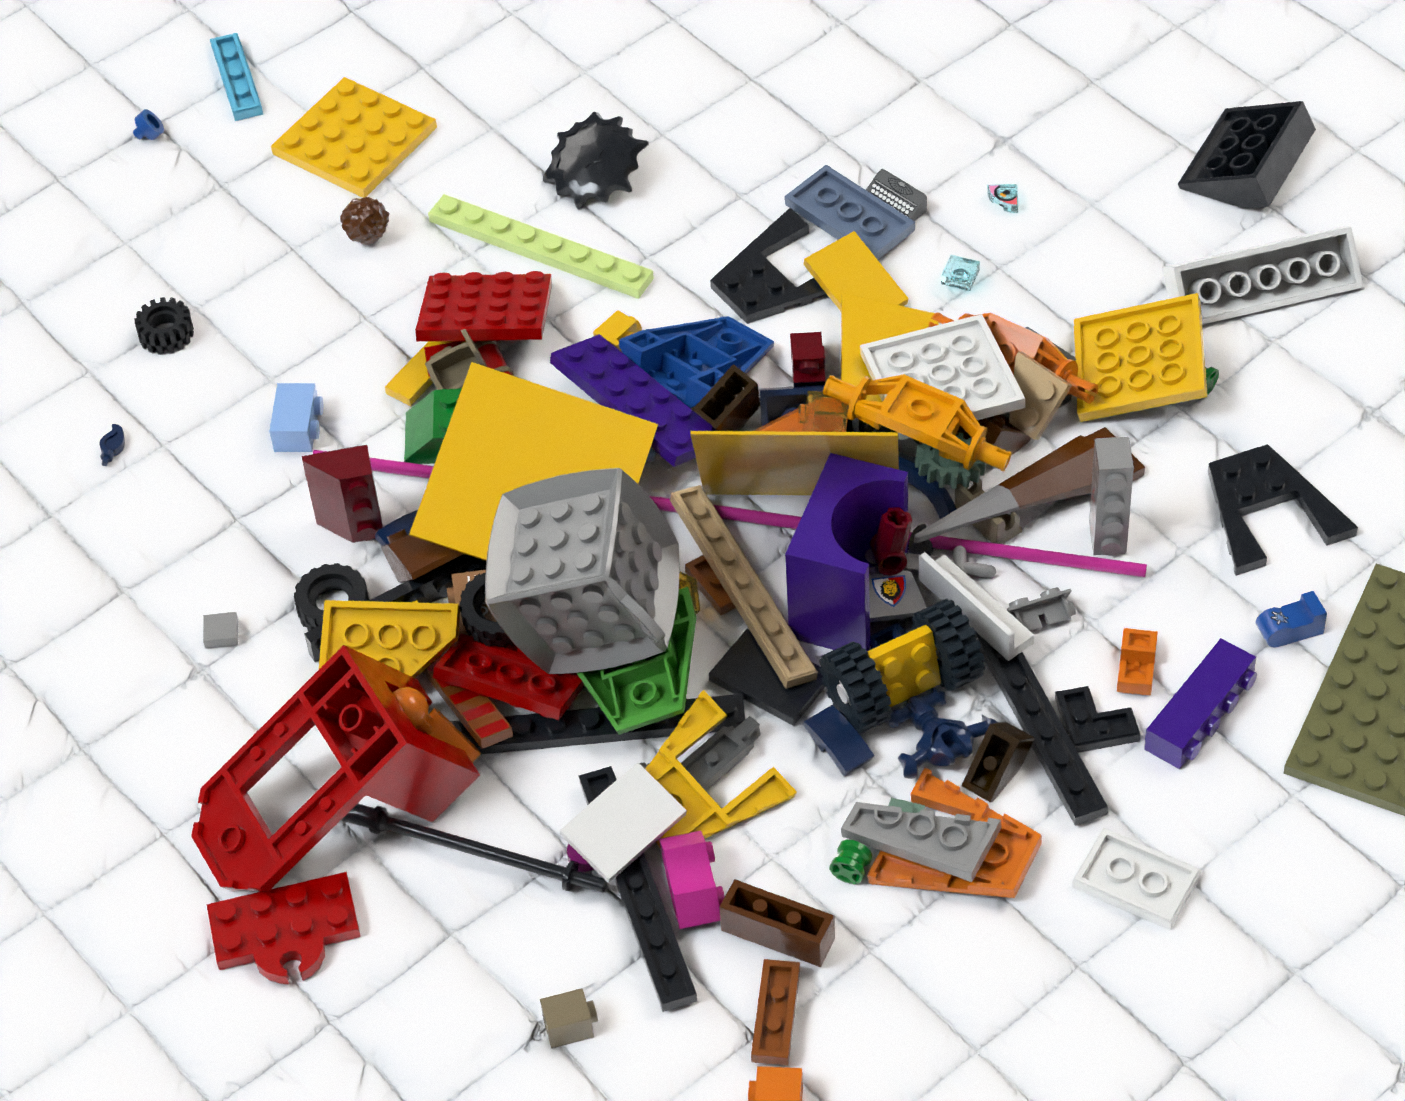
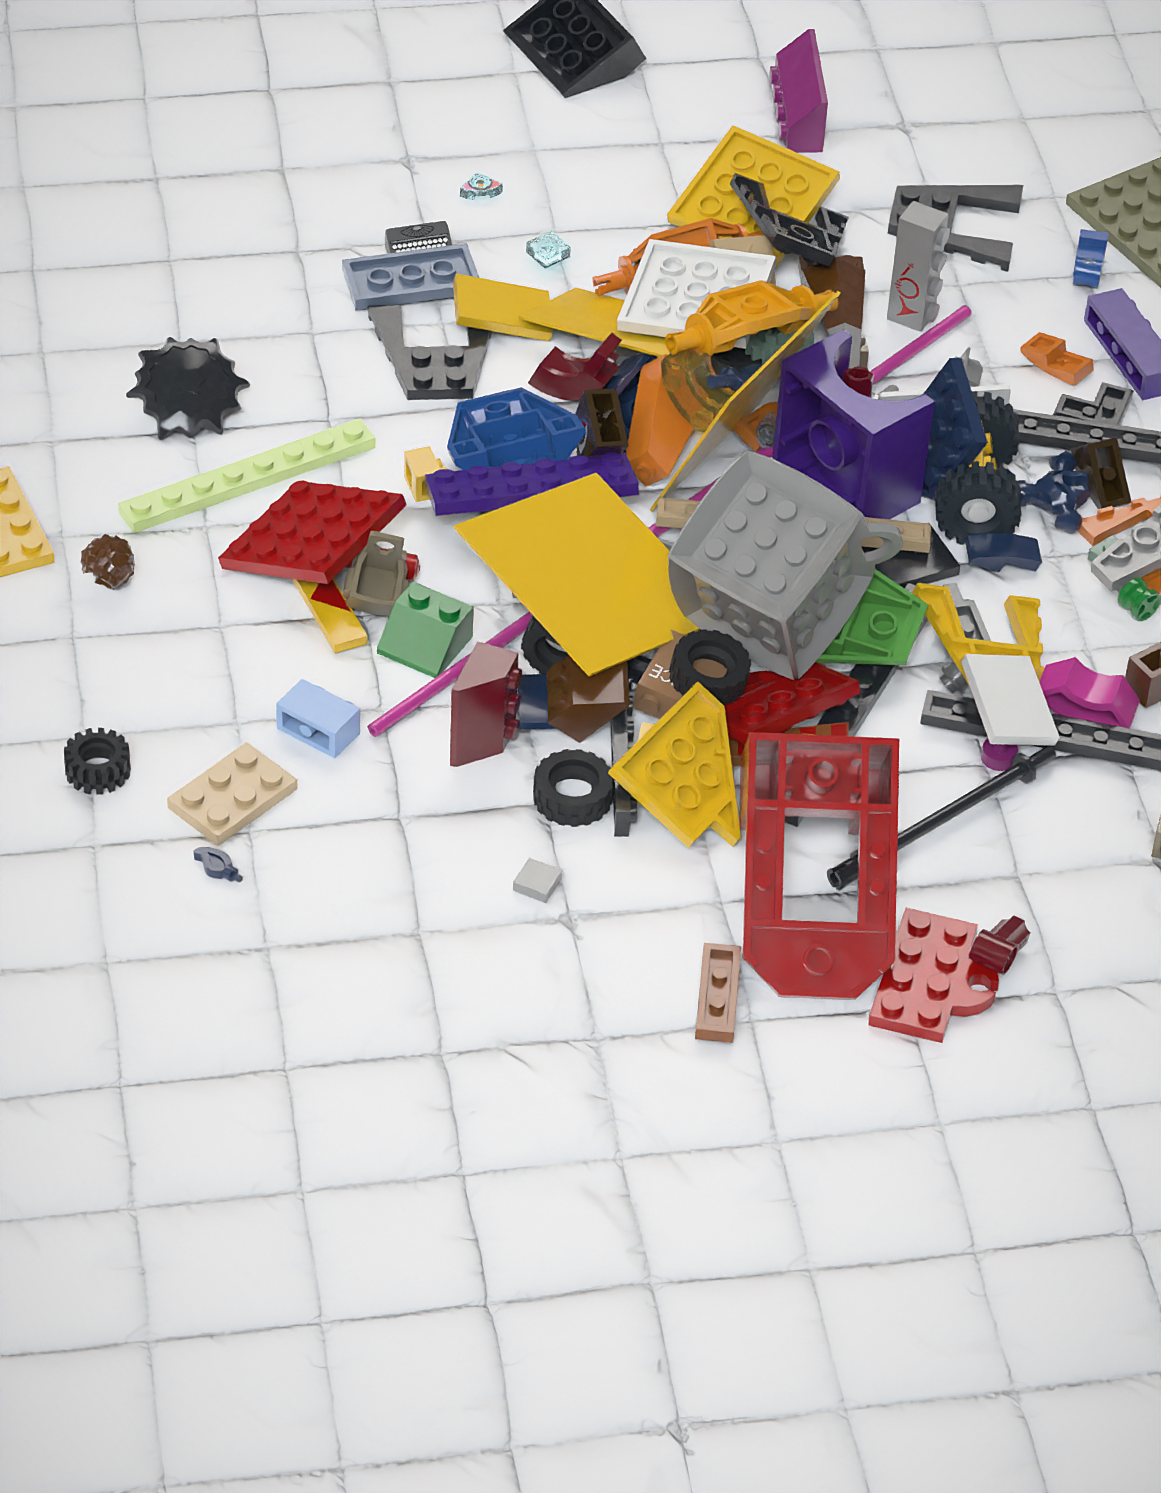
camera: 65 degrees left, 5 degrees down
(162, 797) = (718, 992): none -> plate
(189, 414) = (232, 793): none -> tan plate
(324, 951) = (999, 946): none -> dark red piece
(900, 606) = (955, 426): none -> dark blue plate
(1091, 411) = (789, 233): none -> black wing
(1269, 274) = (717, 94): white slope -> none
(1316, 324) = (800, 94): none -> magenta slope

